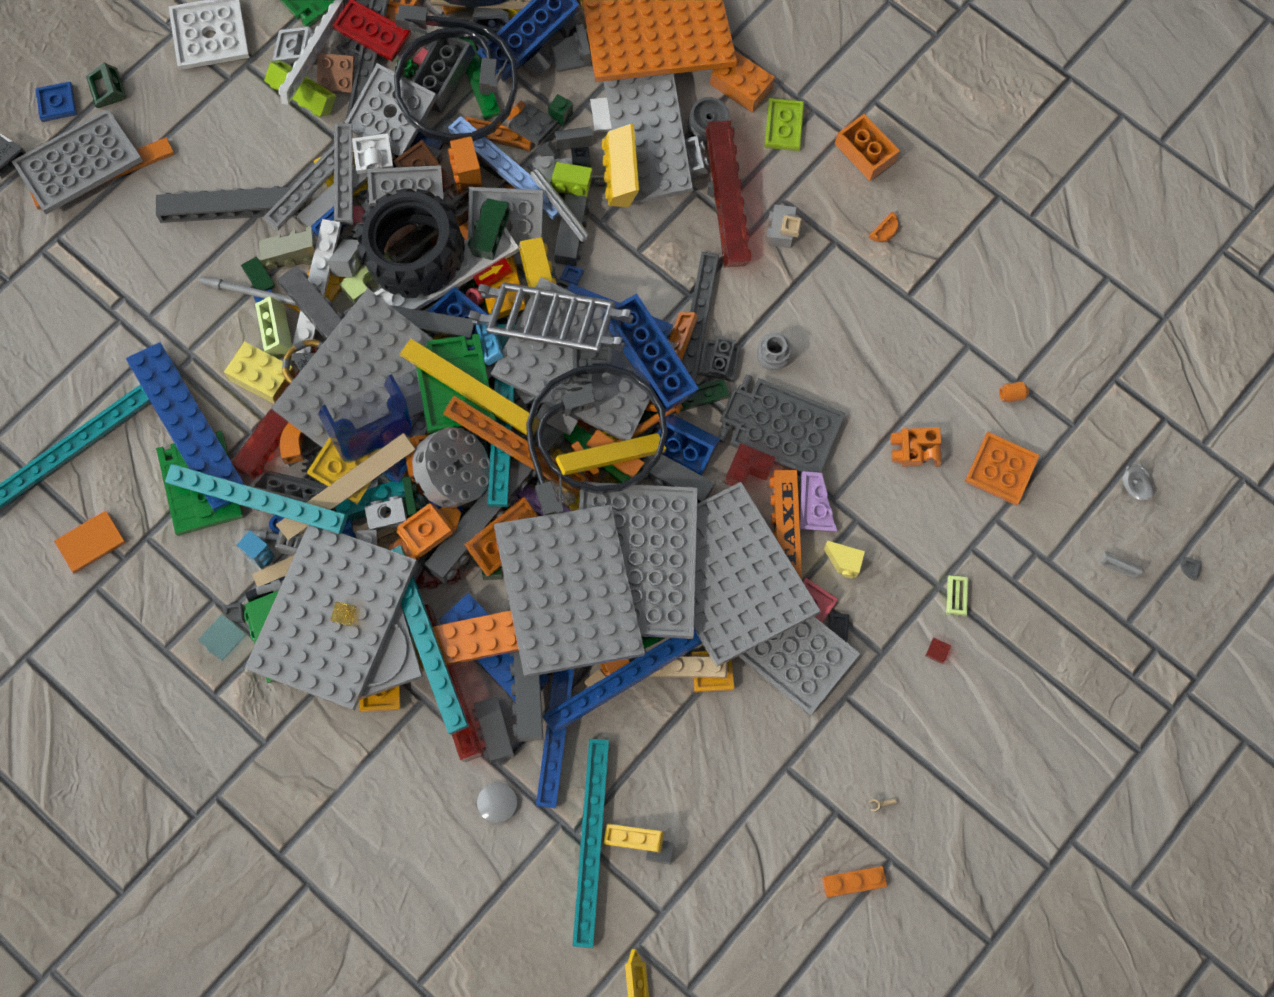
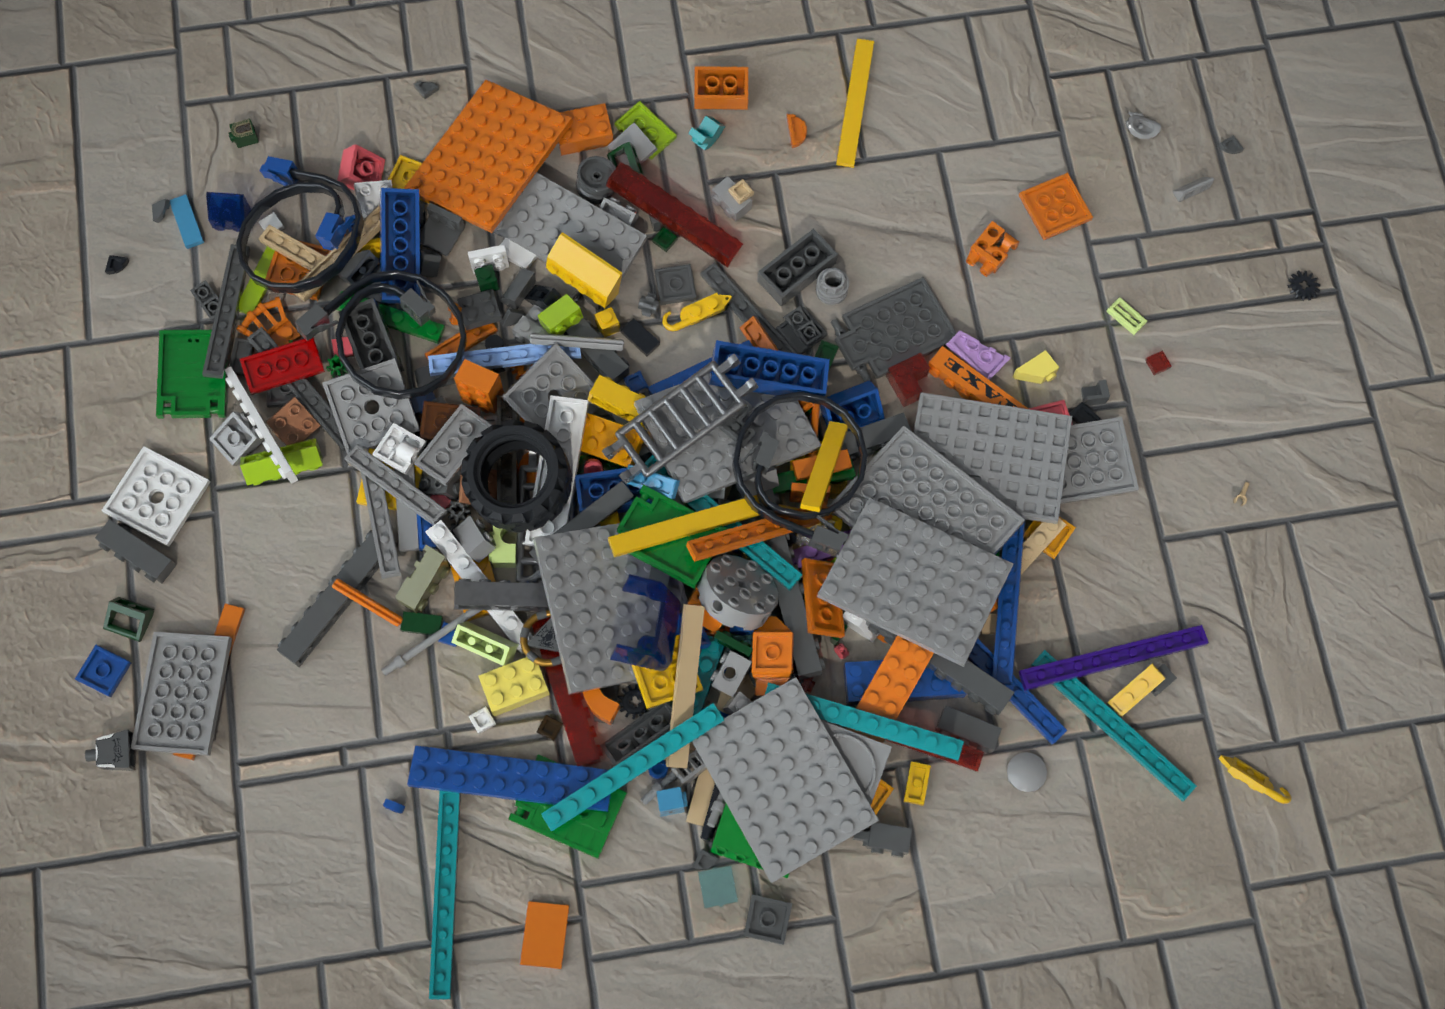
camera: 50 degrees left, 0 degrees up
(104, 363) = (393, 806): none -> blue tile
(156, 51) = (135, 551): none -> dark grey brick
(216, 374) = (482, 720): none -> white tile
(222, 692) = (767, 919): none -> dark grey plate
(240, 225) = (367, 602): none -> orange axle
(248, 423) = (549, 728): none -> dark brown tile
(343, 613) = (795, 767): clear yellow plate -> none
(355, 733) = (886, 838): none -> dark grey hinge
(418, 723) = (917, 783): none -> yellow plate
(481, 587) = (841, 650): none -> coral rock
(489, 228) = (554, 409): dark green brick -> none
(493, 273) = (591, 437): red tile -> none
(516, 155) = (493, 341): none -> black tile
(581, 99) = (487, 256): none -> white plate
(600, 217) = (607, 322): none -> yellow brick
(611, 250) = (640, 337): none -> black tile
(641, 235) = (649, 304): none -> dark grey gear
(647, 800) = (1113, 657): none -> dark purple plate
(668, 274) = (698, 311): none -> yellow plate
(676, 241) = (675, 284): none -> dark grey tile
(706, 206) = (664, 239): none -> dark green tile
(747, 131) = (631, 154): none -> dark green tile
(759, 125) = (643, 146): none -> light grey tile
(766, 313) = (797, 267): none -> dark grey brick
(821, 167) = (707, 132): none -> teal brick
(854, 882) = (1285, 560): orange plate -> none
(864, 620) = (1096, 394): none -> dark grey panel
(950, 253) = (855, 103): none -> yellow tile
(1013, 392) = (1003, 150): orange brick -> none
(1113, 726) = (1297, 288): none -> black gear

